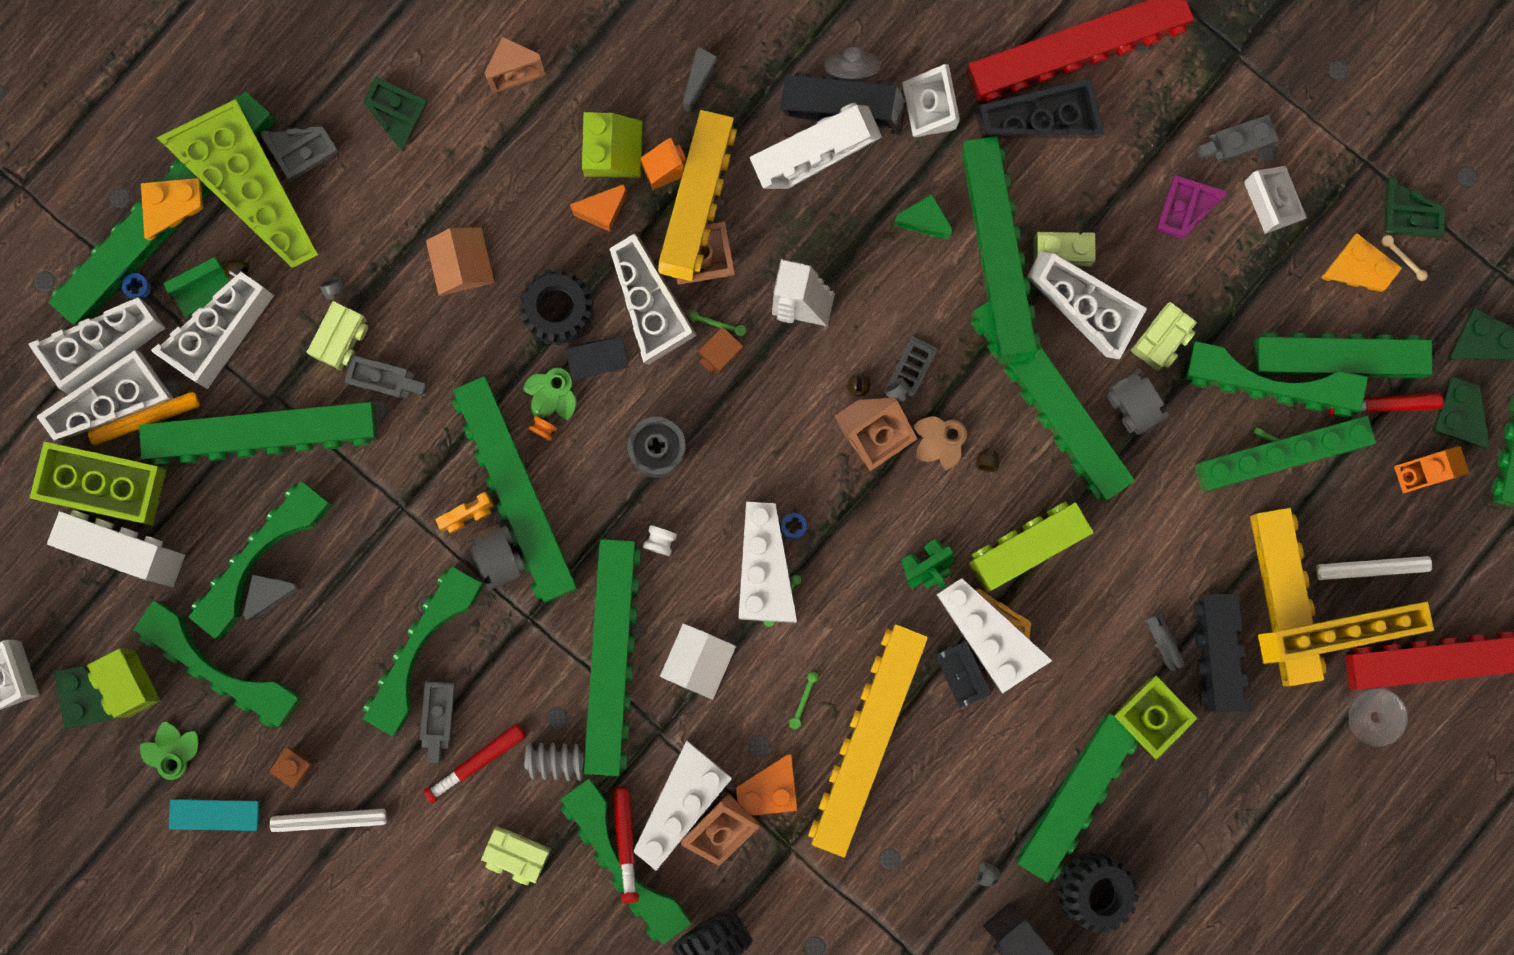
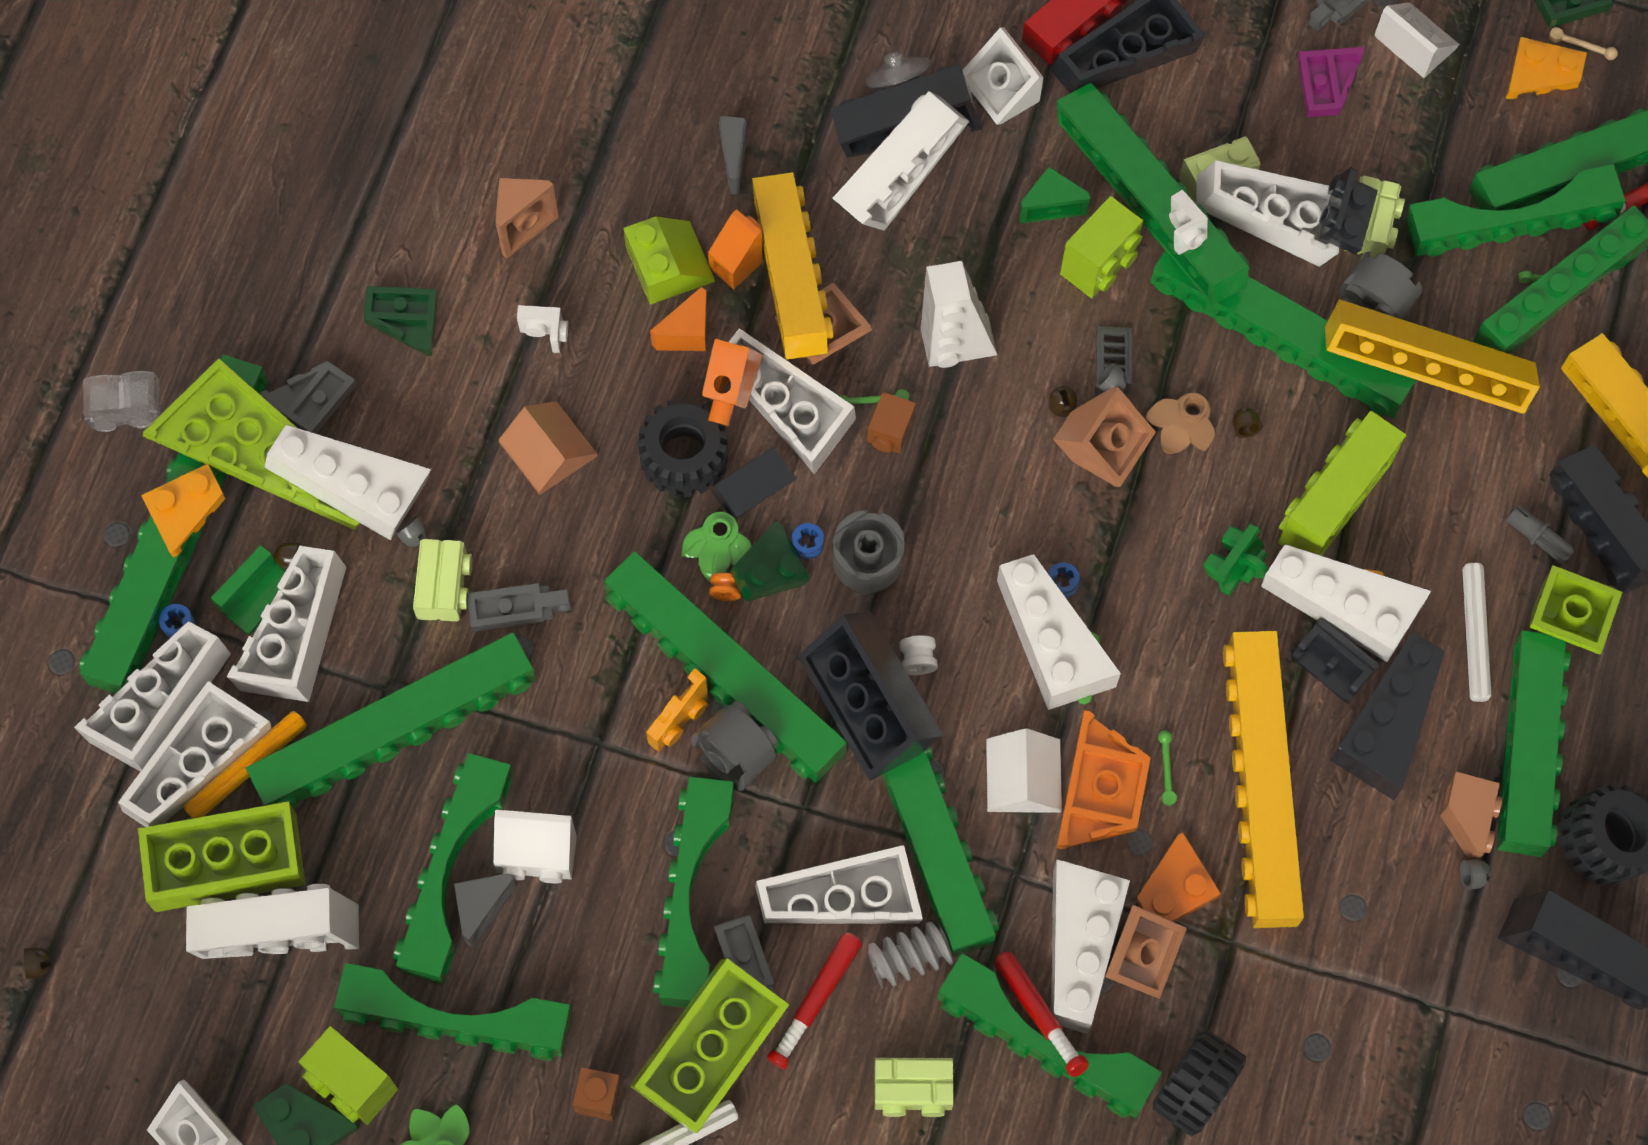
camera: 20 degrees left, 15 degrees down
(159, 94) = (121, 400): none -> clear brick
(301, 236) = (349, 478): none -> white wedge
(321, 570) = (534, 845): none -> white slope
(379, 773) = (709, 1045): none -> lime brick
(493, 159) = (540, 321): none -> white bracket
(533, 698) = (848, 891): none -> white wedge
(581, 426) = (769, 566): none -> dark green wing
(605, 562) = (869, 694): none -> black slope
(607, 275) = (734, 365): none -> orange torso
(612, 411) = (811, 530): none -> blue bush
(750, 695) = (1103, 786): none -> orange wing
(941, 278) = (1102, 248): none -> lime brick
(980, 738) = (1388, 727): none -> black wedge
(1005, 828) = (1469, 812): none -> nougat slope
(1007, 296) = (1188, 222): none -> white bracket
(1080, 695) = (1476, 632): none -> white axle
(1141, 331) = (1348, 212): none -> black bracket
(1147, 474) = (1431, 356): none -> yellow brick

